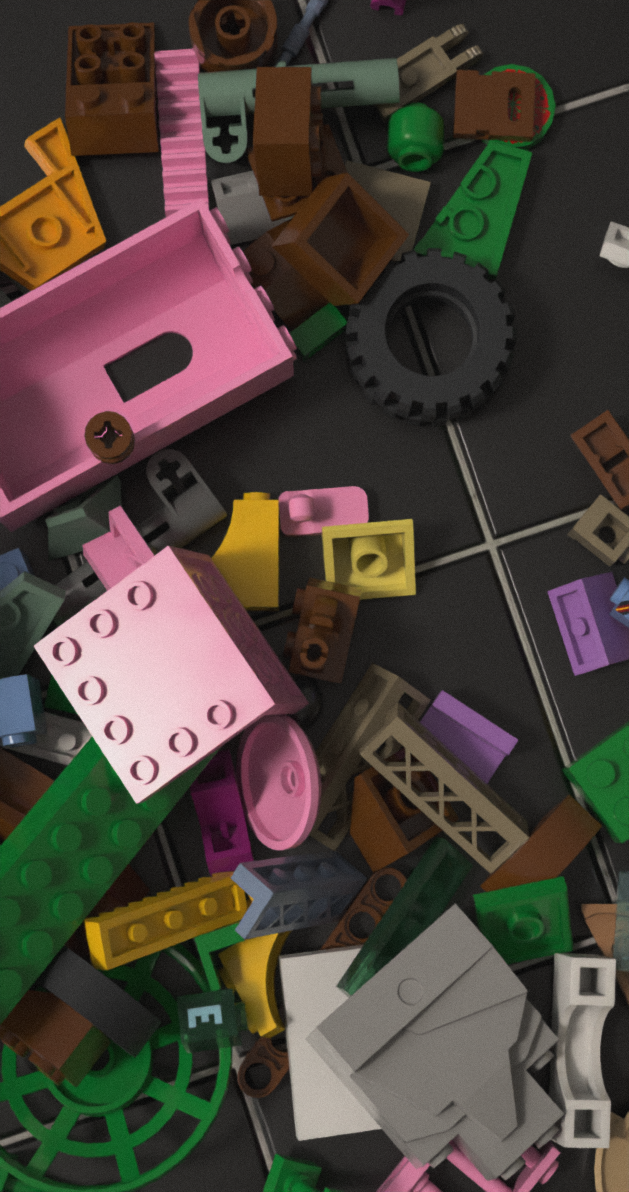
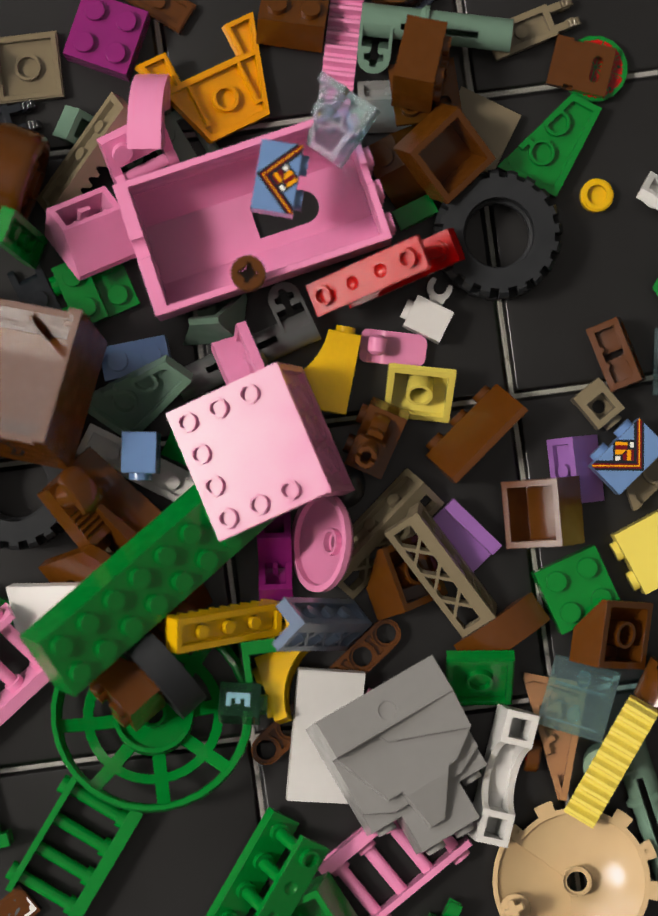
camera: 10 degrees right, 5 degrees up
(126, 305) = (278, 179): none -> brick
(193, 217) = (339, 121): none -> clear light blue slope
(293, 406) = (385, 271): none -> fence
(360, 459) = (428, 316): none -> white brick
(410, 913) = (398, 654): clear green tile -> none
(415, 137) = (517, 79): green head -> none
(451, 597) = (474, 432): none -> reddish brown slope
(547, 266) = (596, 195): none -> yellow tile
(563, 685) = (542, 512): none -> reddish brown piece
(617, 1018) = (532, 758): none -> reddish brown tile

